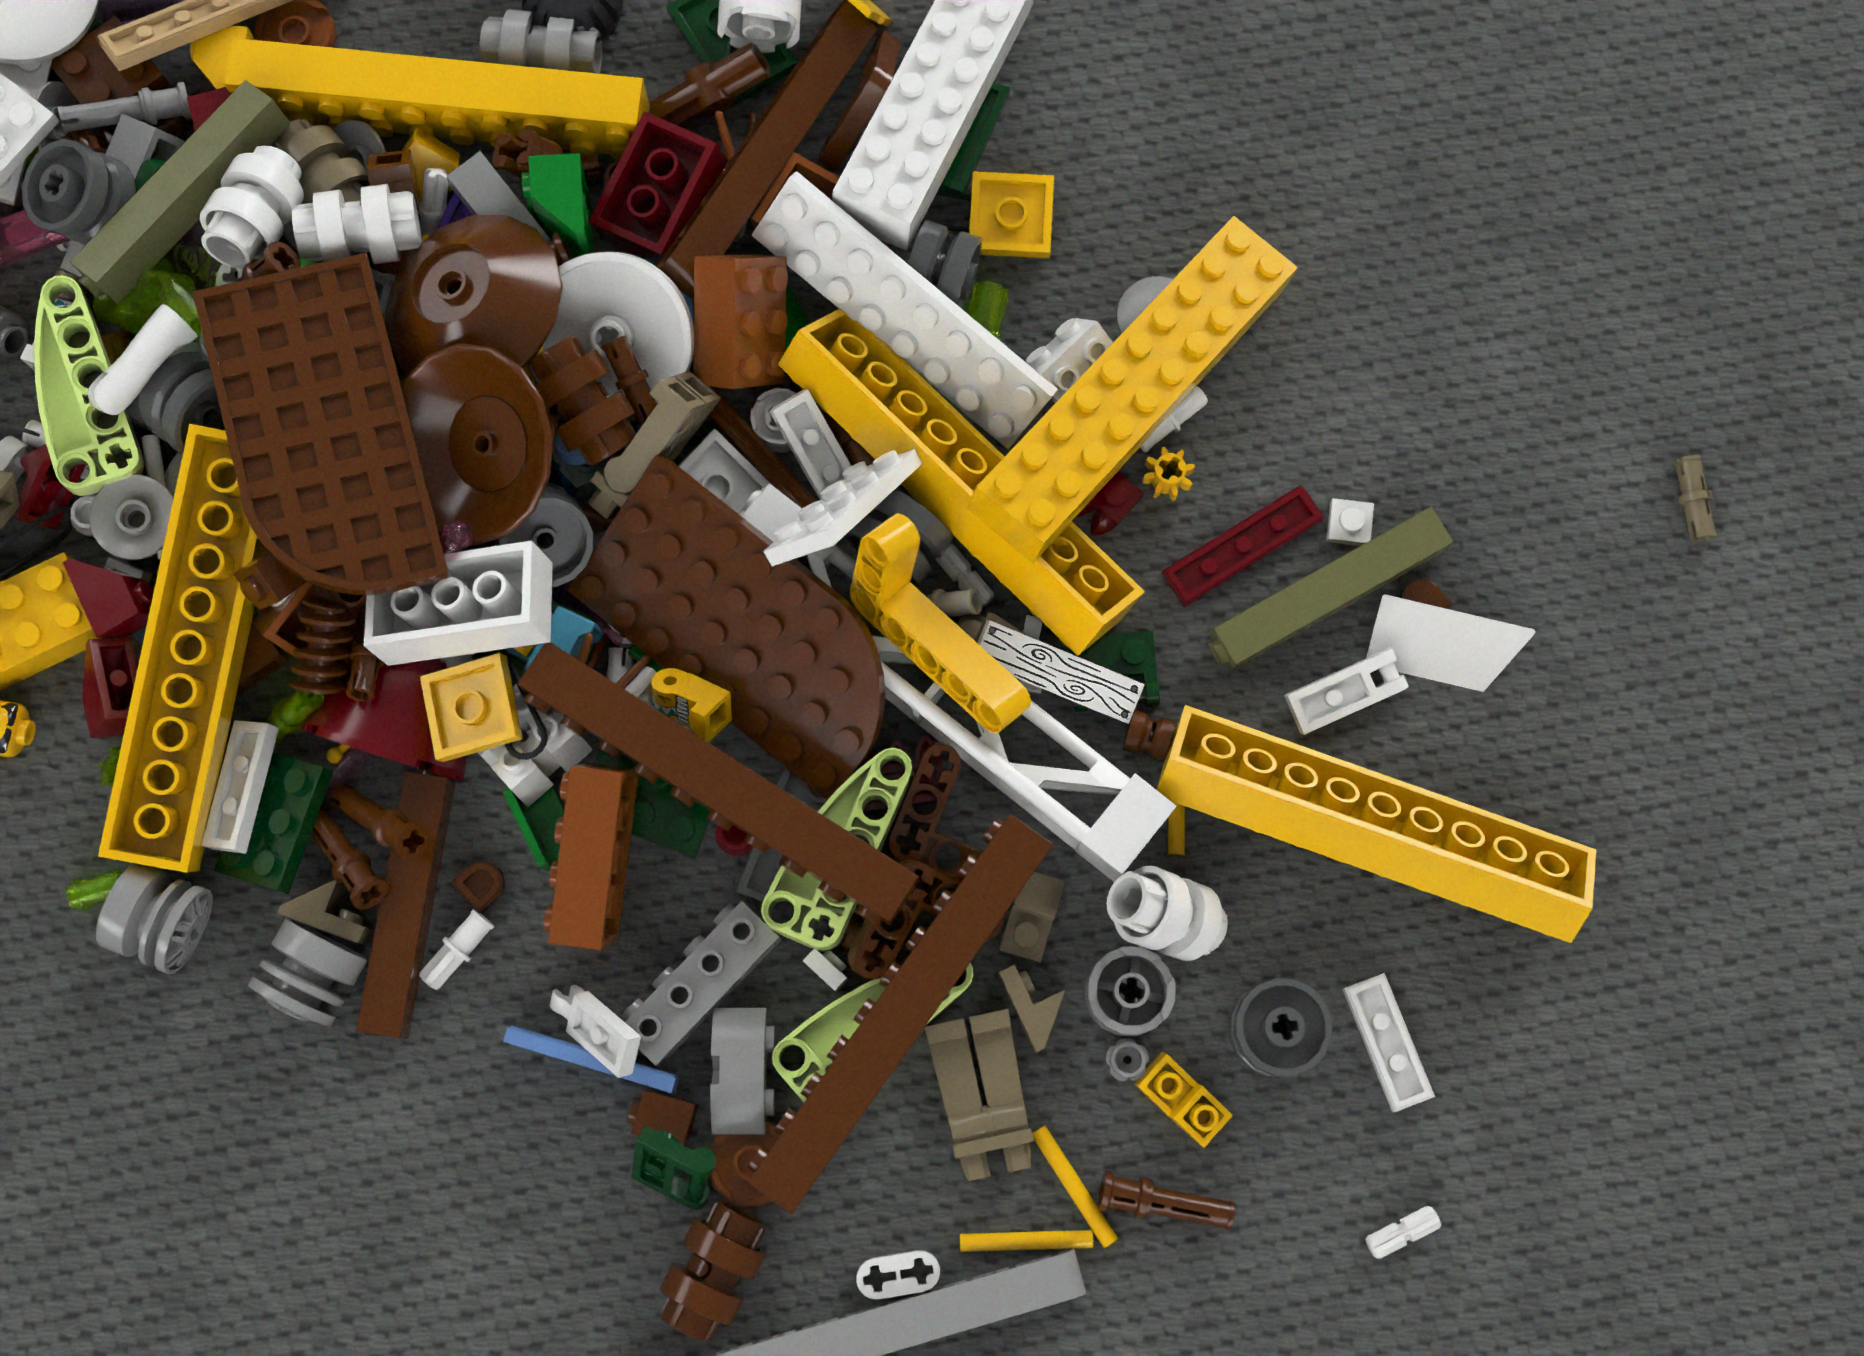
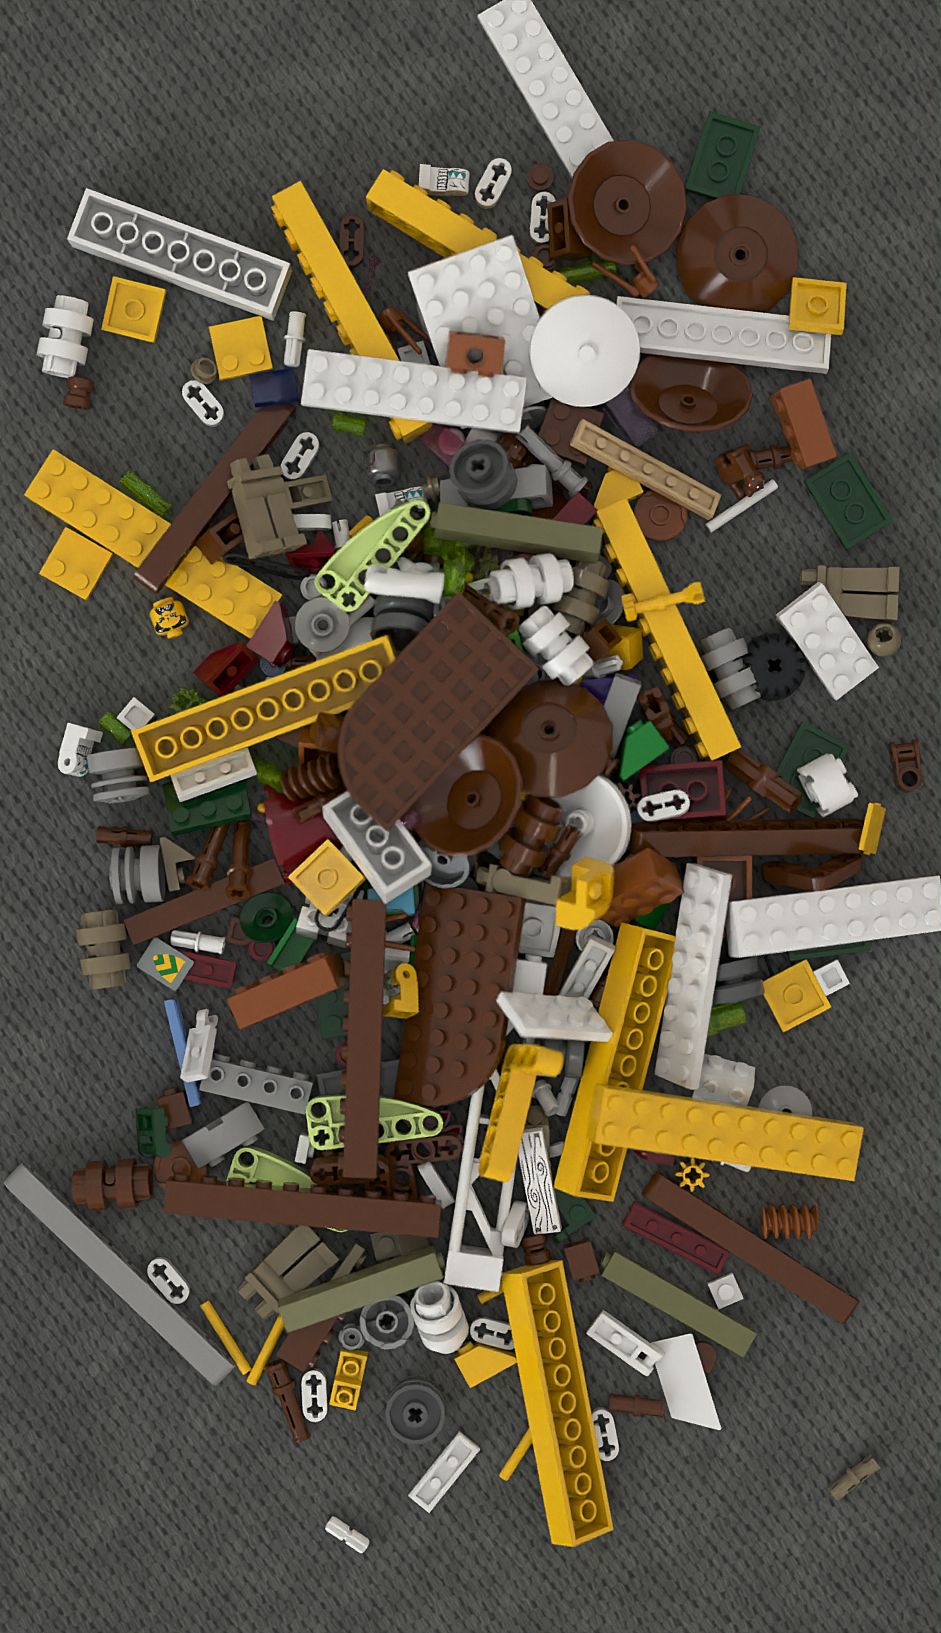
camera: 65 degrees right, 10 degrees up
(82, 959) = (75, 748): none -> white leg
(86, 851) = (135, 715): none -> white plate
(235, 984) = (124, 836): none -> reddish brown pin
(361, 1076) = (105, 961): none -> dark tan piece
(375, 108) = (691, 594): none -> yellow piece
(455, 1011) = (165, 964): none -> light grey sticker
(468, 834) = (265, 907): none -> dark green dish
(487, 975) = (211, 970): none -> dark red plate
(519, 867) = (261, 951): none -> dark red plate
(646, 212) = (662, 799): none -> white beam
(706, 363) = (589, 894): none -> yellow brick
(976, 816) = (435, 1183): none -> white beam
(1016, 154) = (831, 977): none -> white plate
(1064, 996) = (361, 1288): none -> olive brick
(1083, 1105) = (302, 1344): none -> reddish brown brick
(1100, 739) = (515, 1224): none -> white beam
(1184, 1152) = (308, 1395): none -> white beam
(1200, 682) = (581, 1260): none -> reddish brown brick
(1241, 867) = (488, 1338): none -> white beam
(1264, 898) = (482, 1361): none -> yellow slope
(1302, 384) = (789, 1221): none -> dark orange piece
(1309, 453) = (750, 1247): none -> reddish brown beam
(1418, 923) = (516, 1456): none -> yellow bar
(1440, 725) = (636, 1405): none -> reddish brown pin
(1459, 783) = (610, 1433): none -> white beam

